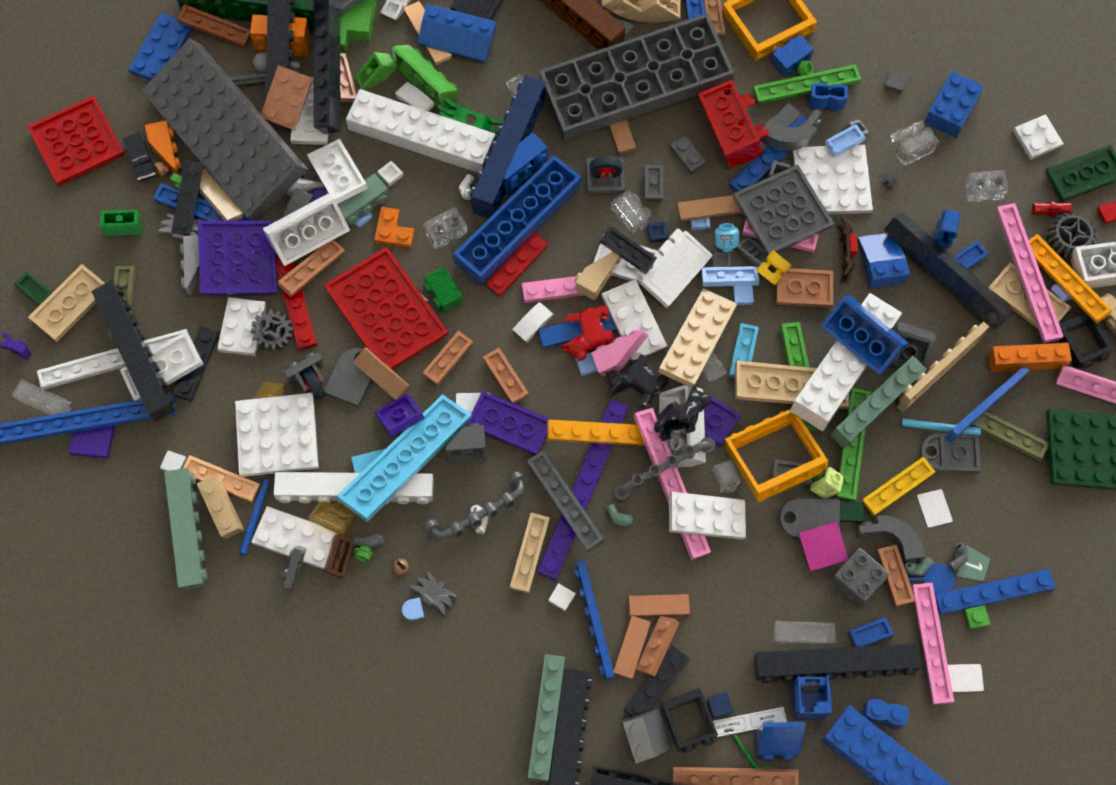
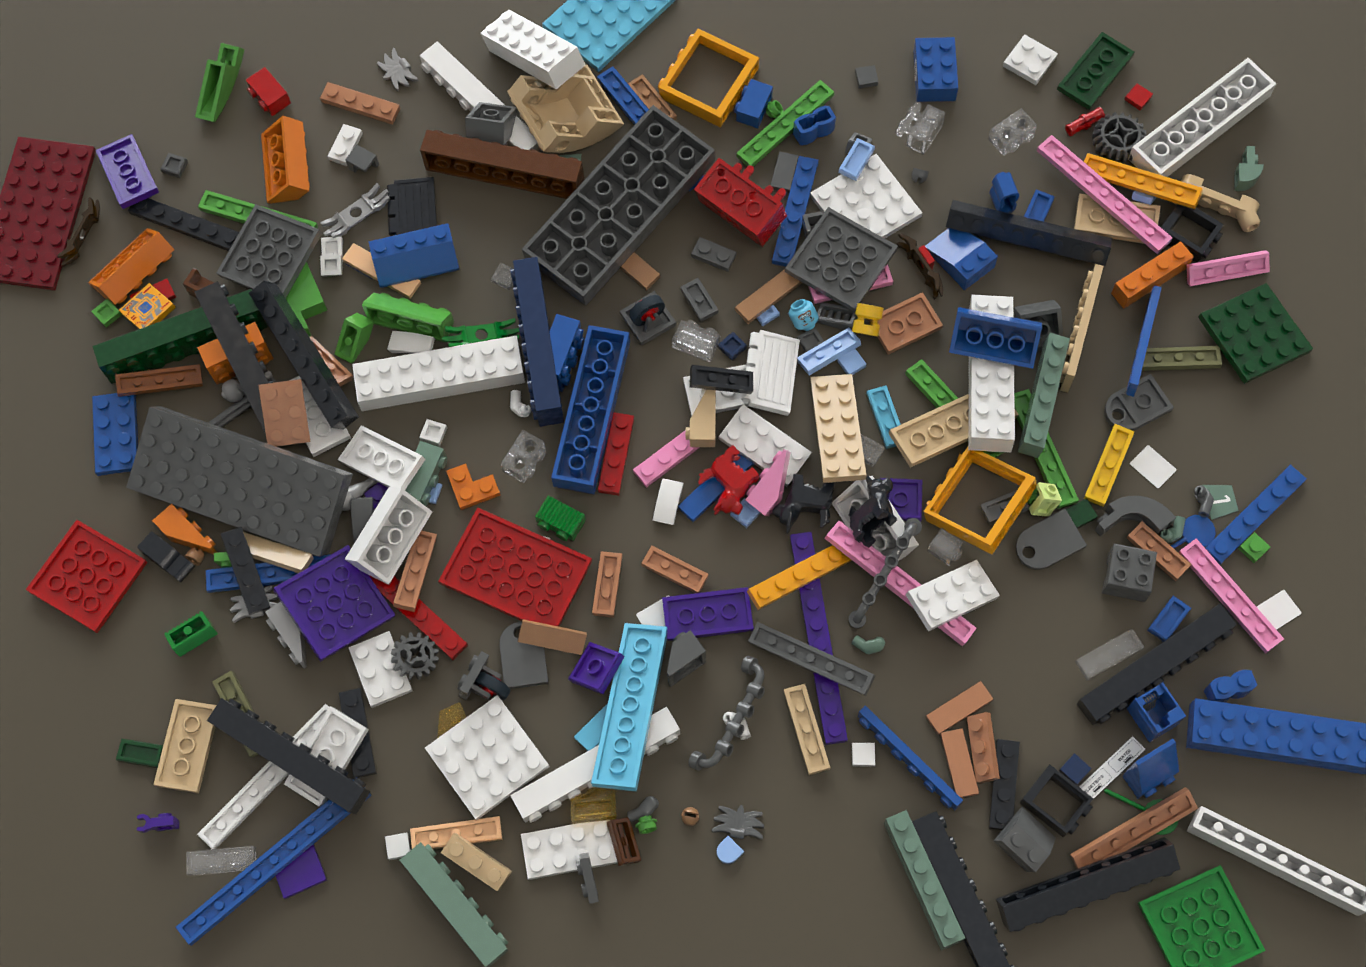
camera: 25 degrees left, 0 degrees up
(254, 517) = (514, 852): blue bar -> none
(792, 138) = (807, 184): dark grey arch -> none
(823, 546) = (1077, 561): dark pink tile -> none
(937, 426) = (1109, 387): medium azure bar -> none

